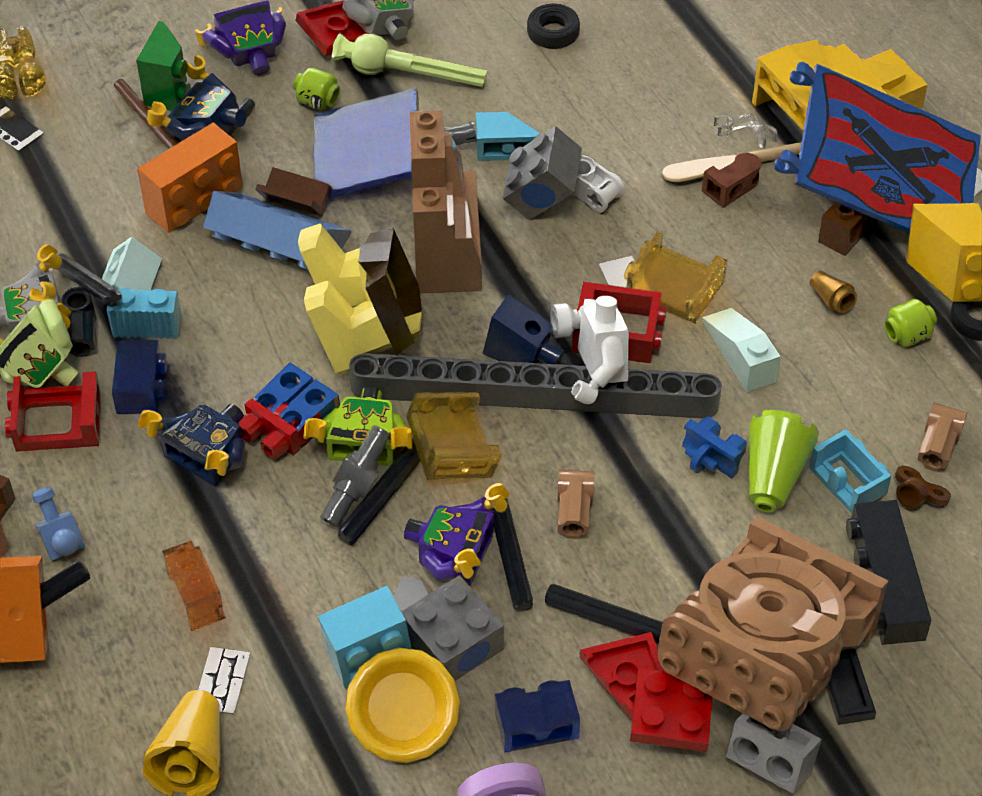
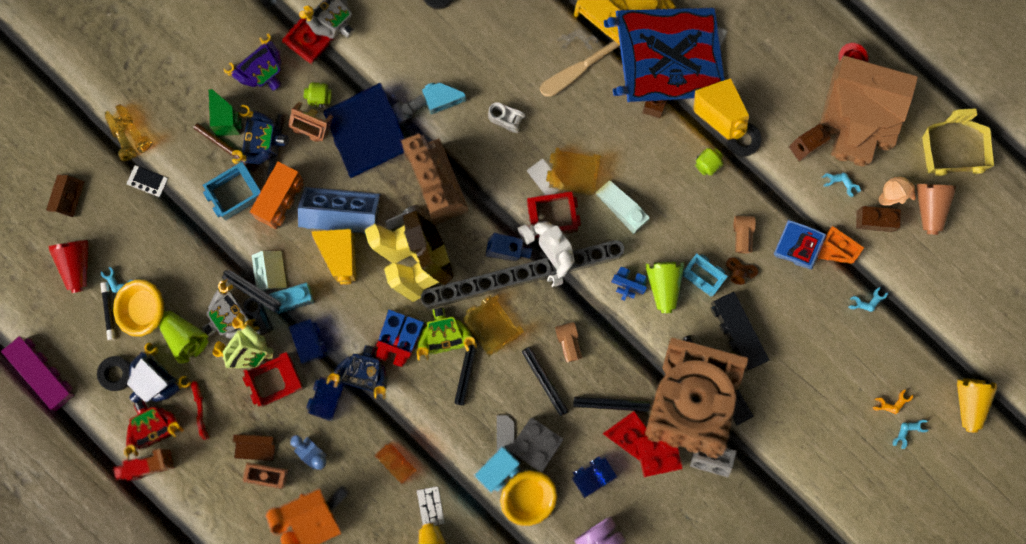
camera: 25 degrees left, 30 degrees up
(120, 147) = (222, 179): none -> dark azure window
(124, 461) = (325, 399): none -> clear blue brick
(249, 269) = (338, 252): none -> yellow slope
(296, 191) = (338, 181): reddish brown panel -> none
(308, 117) = (311, 118): none -> nougat window
(355, 476) = (452, 370): dark grey pin -> none
(371, 55) = (341, 58): yellowish green piece -> none
(457, 535) = (518, 389): torso -> none
(542, 173) = (477, 125): flat silver brick -> none
(733, 180) = (584, 86): copper leg -> none
(835, 293) = (663, 152): pearl gold cone -> none

